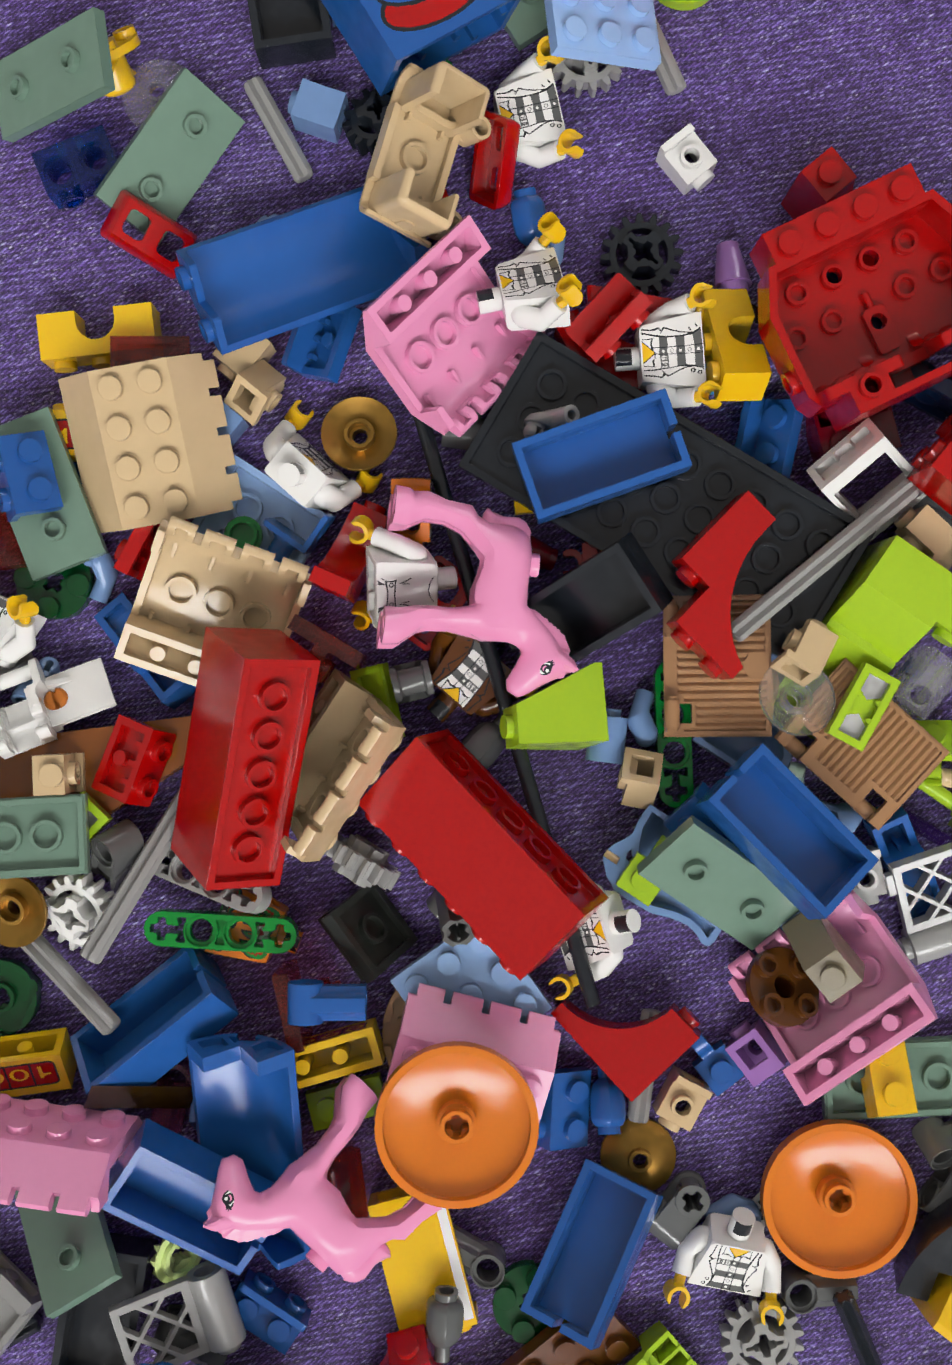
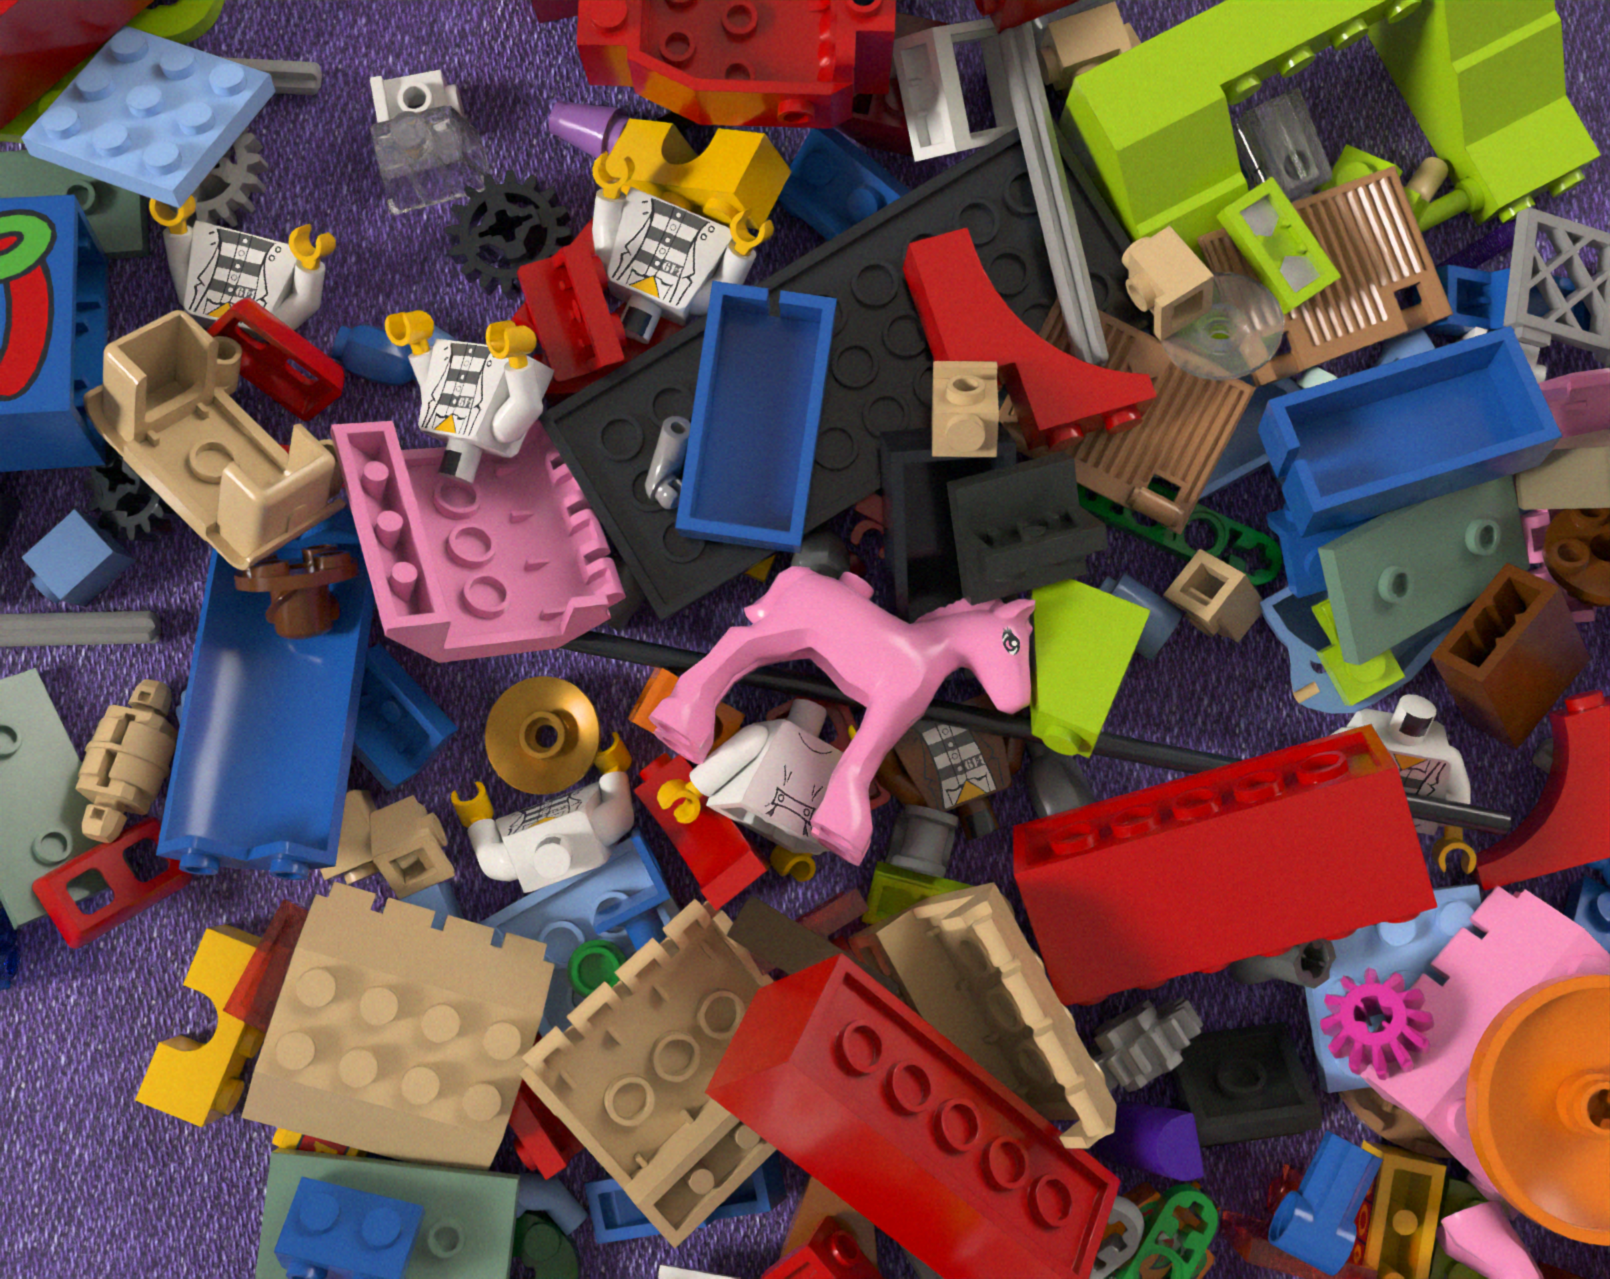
camera: 55 degrees left, 5 degrees down
(220, 204) = (127, 760): none -> tan piece
(311, 893) = (1154, 1141): none -> dark purple brick
(312, 634) = (787, 942): none -> dark brown sticker
(368, 248) = (300, 589): none -> reddish brown plate
(436, 997) = (1401, 1030): none -> dark pink gear
(546, 538) = (823, 553): none -> dark grey plant
(615, 640) = (1021, 528): none -> pearl dark grey bracket
(640, 720) = (1138, 557): medium blue arm -> none
(659, 182) = (428, 158): none -> clear torso
(665, 571) = (964, 409): none -> tan brick
(693, 962) = (1511, 655): none -> reddish brown brick

